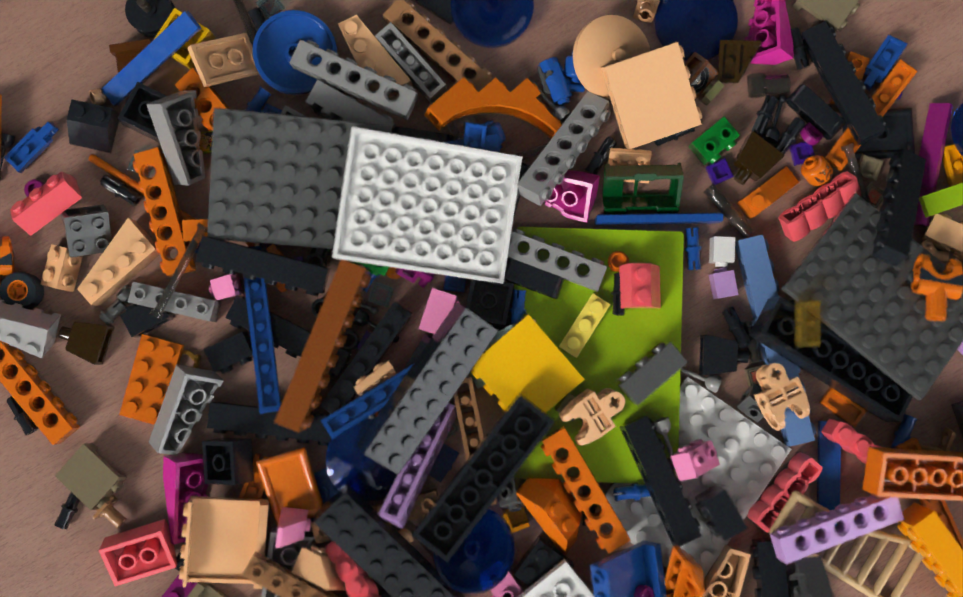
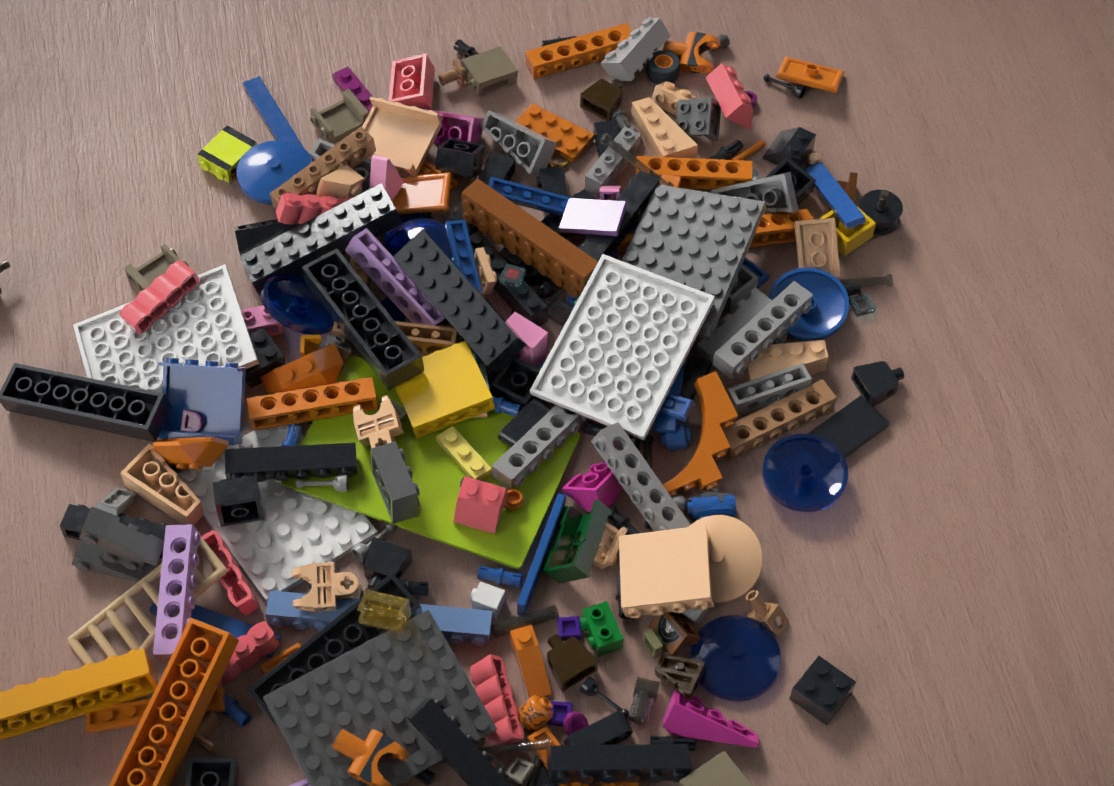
camera: 105 degrees right, 30 degrees down
(31, 146) = (785, 104): blue hinge -> none
(258, 100) = (767, 264): blue pin -> none
(273, 289) = (593, 216): none -> tile
(372, 348) = (512, 275): none -> clear light blue tile
(695, 459) = (295, 497): bright pink brick -> none
(723, 283) = (454, 590): lavender brick -> none
(764, 115) = (612, 687): black axle -> none
(788, 137) = (581, 702): black axle -> none

